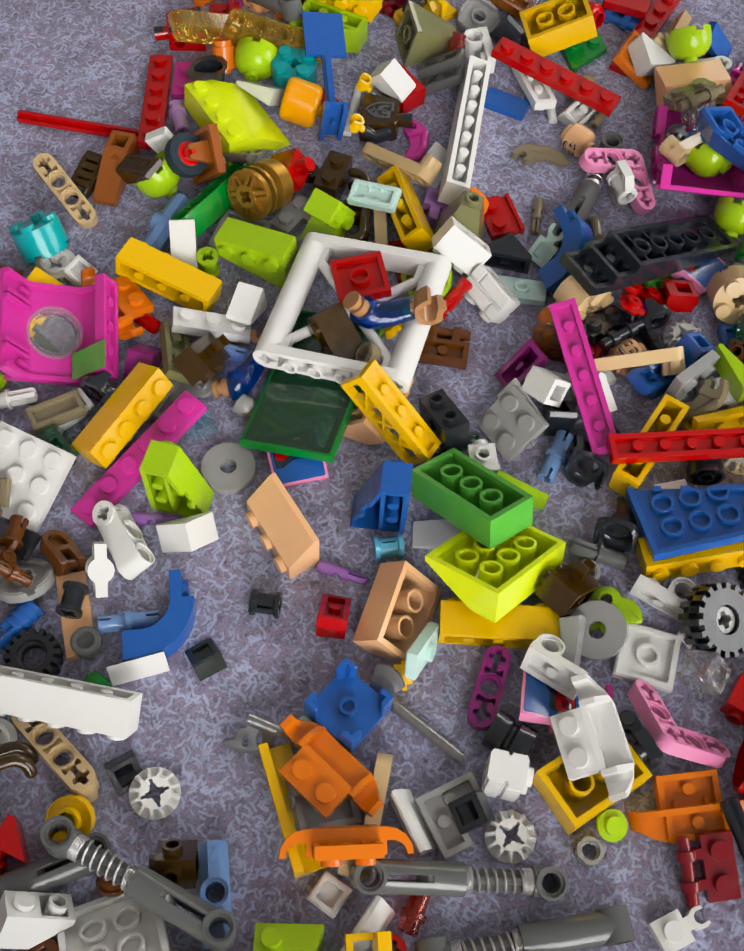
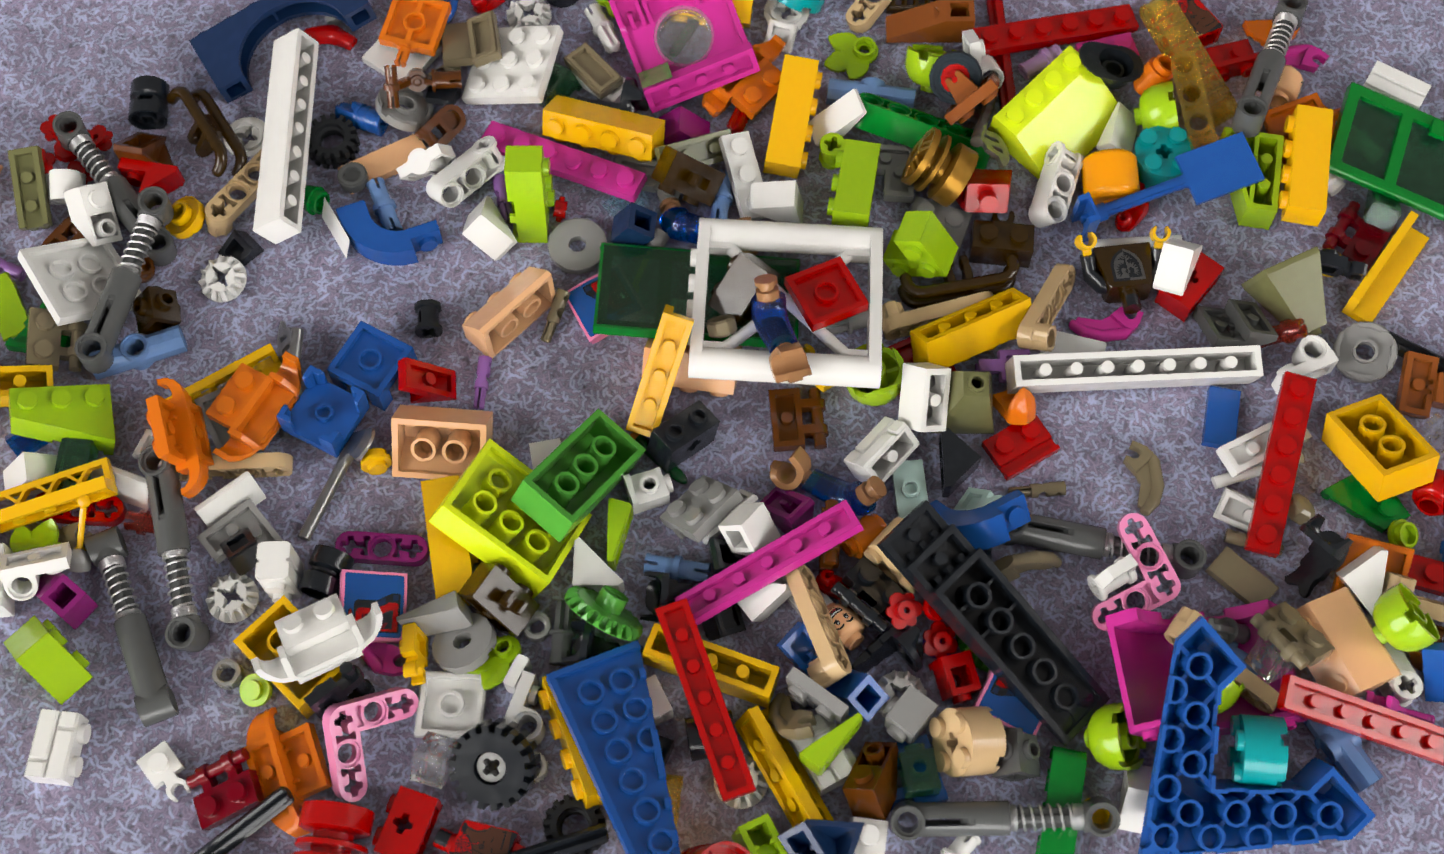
camera: 80 degrees right, 5 degrees up
(72, 600) = (389, 150): black bush -> none
(117, 233) = (847, 54): none -> lime plate
(138, 168) = (924, 38): dark brown slope -> none
(206, 659) = (362, 284): pearl dark grey slope -> none
(232, 414) = (634, 225): none -> dark blue brick
(296, 133) = (1055, 186): none -> white piece
(297, 498) = (555, 314): none -> dark tan pin
(302, 657) = (370, 363): none -> blue panel
(374, 196) = (970, 286): light aqua plate -> none
(384, 498) = (560, 397): blue wedge -> none
(388, 547) = (518, 417): medium azure bush -> none
(422, 650) = (397, 468): light aqua plate -> none
(455, 295) = (860, 411): red axle -> none
(507, 28) = (1351, 389): black slope -> none
(512, 335) = (859, 495): none -> piece
(546, 663) = (402, 592): white plate -> none
(552, 515) = (591, 570): none -> white slope
(577, 139) = (1185, 516): light nougat head -> none
(596, 506) = (605, 611): none -> bright green gear
(601, 671) = (414, 648): none -> yellow plate
(613, 40) = (1403, 533): none -> lime plate
(624, 75) = (1324, 555): none -> black hair
(629, 125) = (1240, 577): none -> dark tan tile
(631, 590) = (514, 673): none -> white tile
(712, 323) = (909, 715): none -> light grey brick

